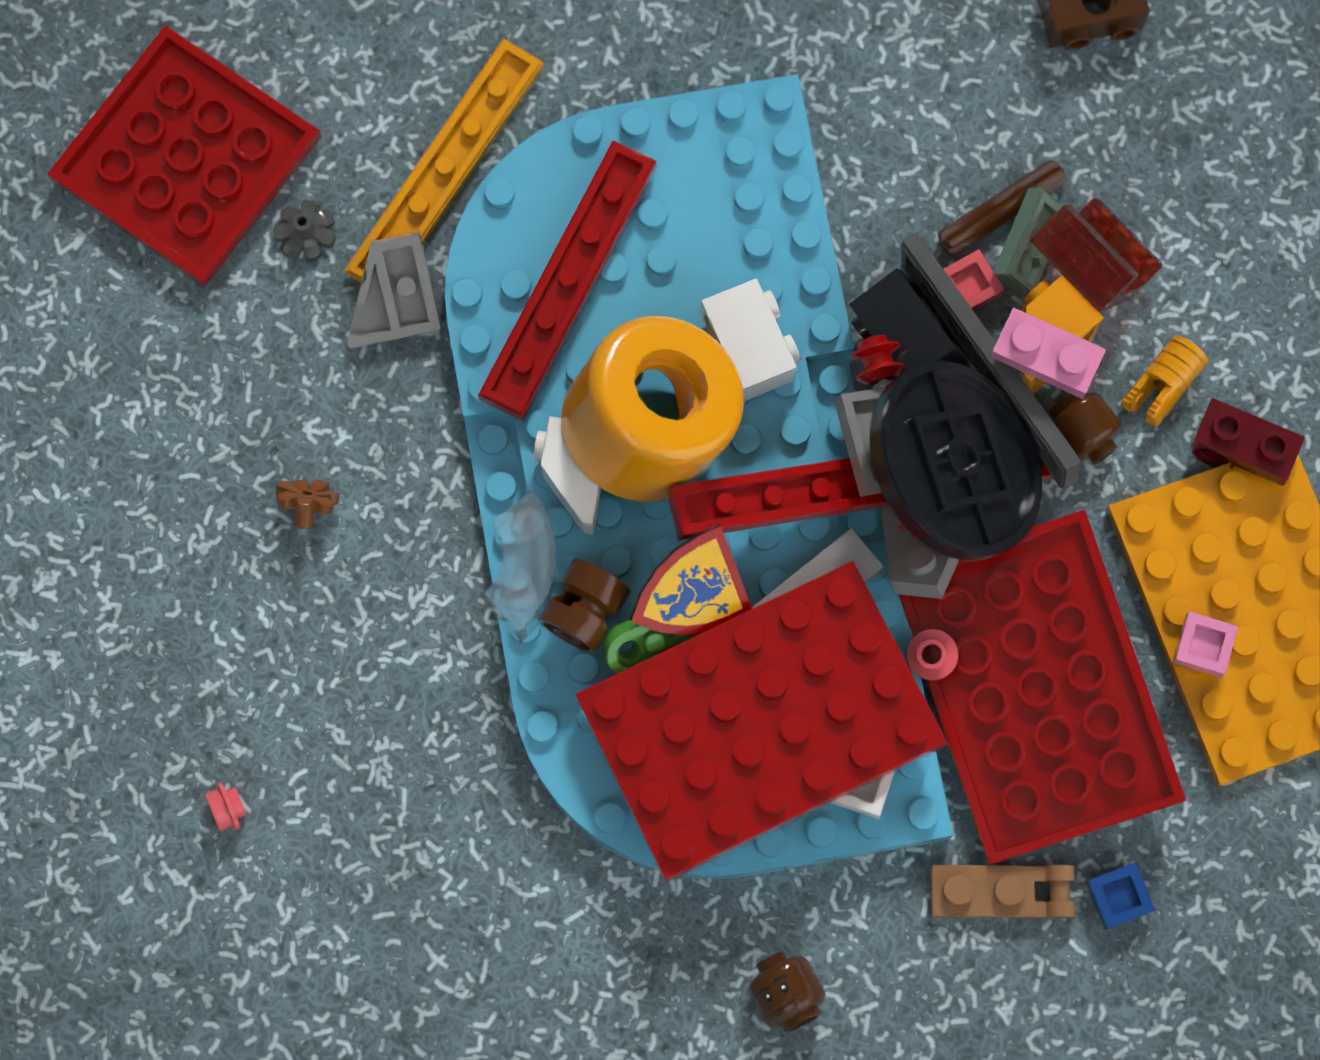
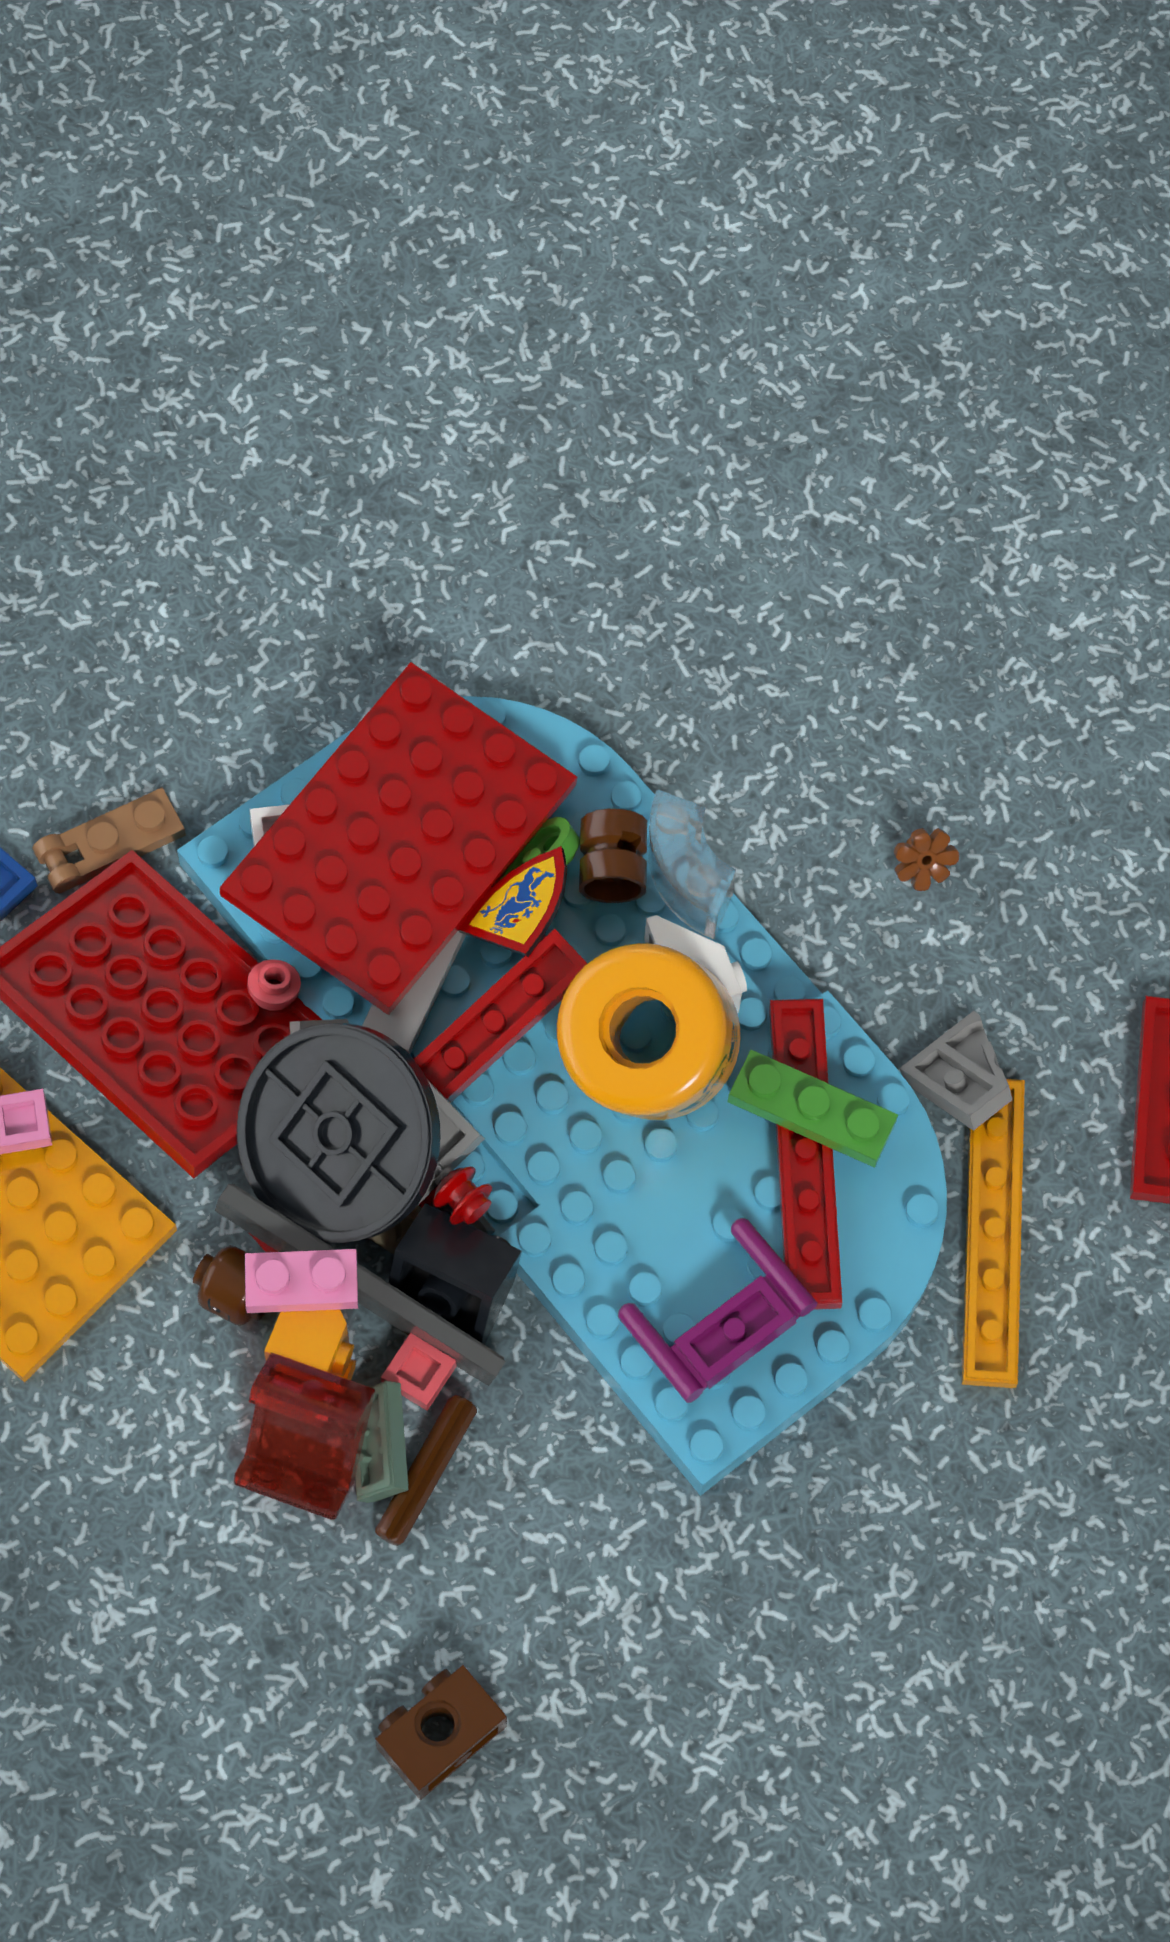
camera: 150 degrees right, 10 degrees down
(225, 807) = (830, 581): coral plate -> none
(305, 230) = (1085, 1103): dark grey plant -> none
(544, 298) = (812, 1108): none -> bright green plate
(713, 158) = (732, 1330): none -> magenta plate
(748, 331) = (598, 1171): white brick -> none
(787, 991) = (259, 661): reddish brown head -> none
(1170, 374) = (175, 1379): light orange hinge -> none
(1245, 442) = (66, 1341): dark red plate -> none

